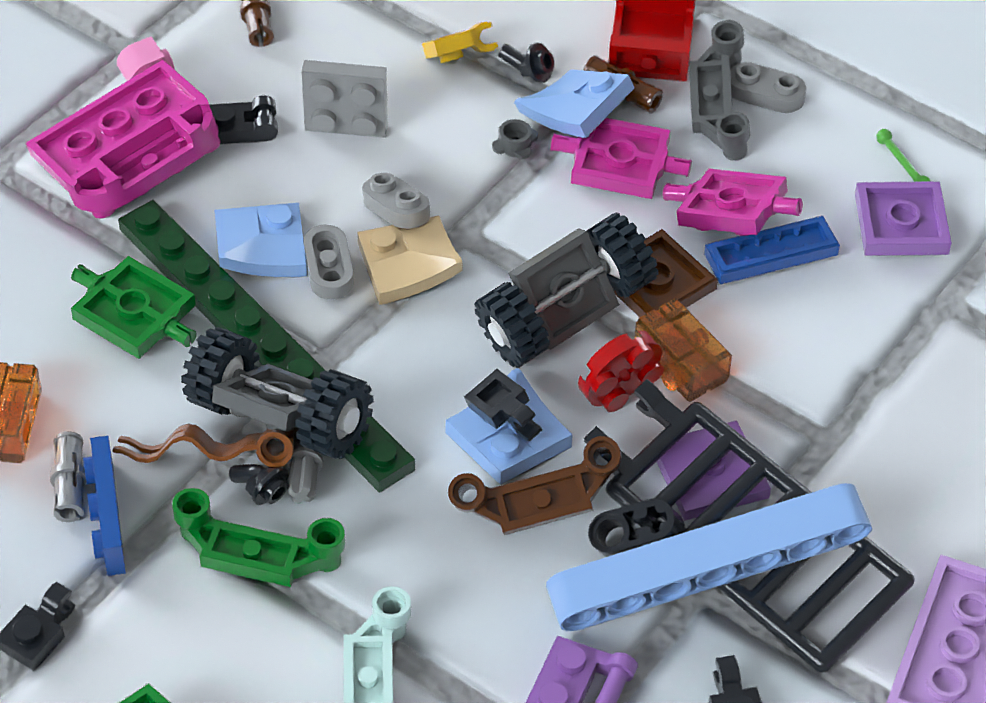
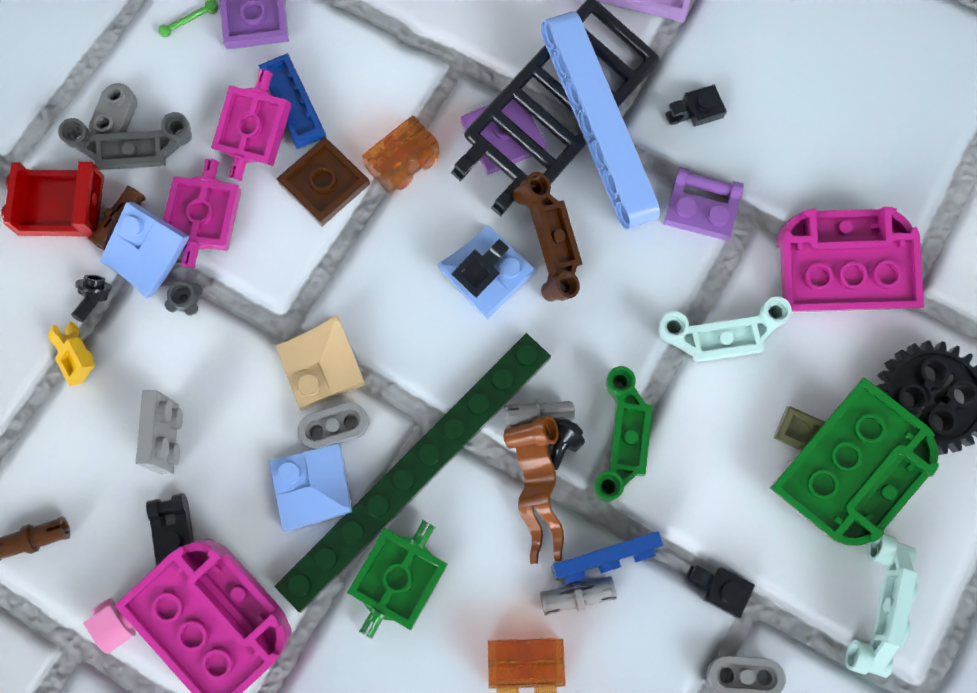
camera: 95 degrees left, 25 degrees up
(325, 409) = (498, 436): black plate -> none
(396, 201) = (263, 383): light grey plate -> none
(565, 289) = (369, 243): plate -> none
(621, 369) = (438, 188): red plate -> none
(645, 515) = (590, 162): black beam -> none

